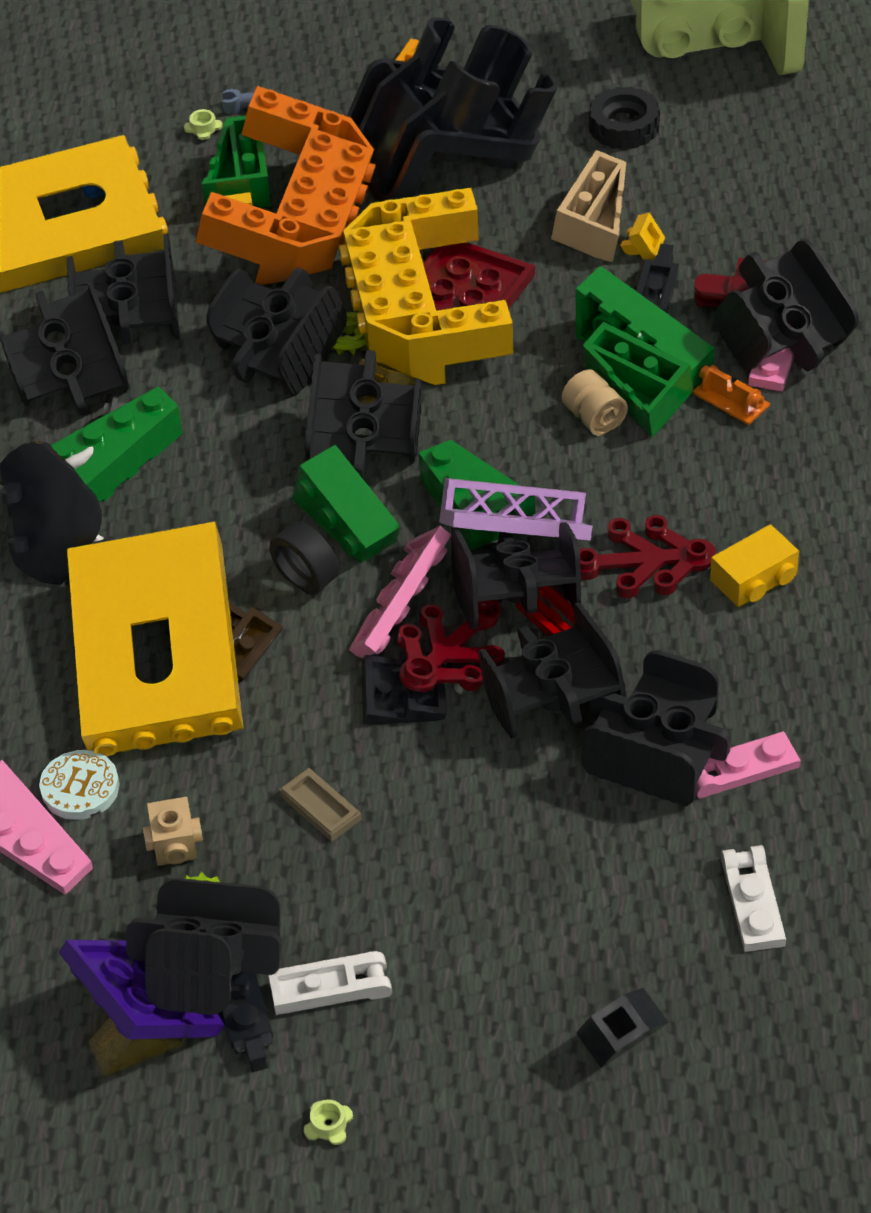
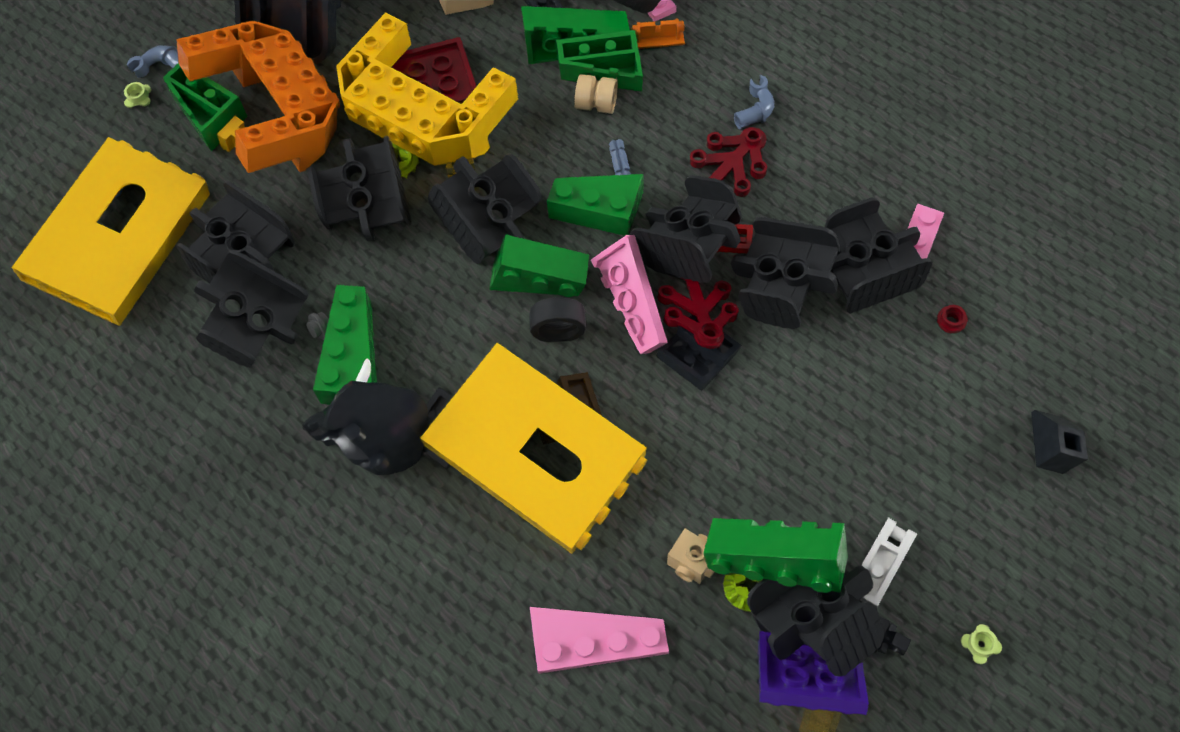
camera: 45 degrees left, 15 degrees up
(79, 784) = (592, 578): light aqua tile -> none
(219, 860) = (779, 552): none -> green wedge
(320, 804) = (741, 461): dark tan tile -> none
(512, 523) = (650, 200): lavender fence -> none
(549, 474) = (619, 157): none -> sand blue axle
(677, 844) = (952, 311): none -> dark red plate
(731, 533) = (761, 109): none -> sand blue piece
(753, 899) = (1014, 309): white plate -> none
(754, 566) = (793, 121): yellow brick -> none

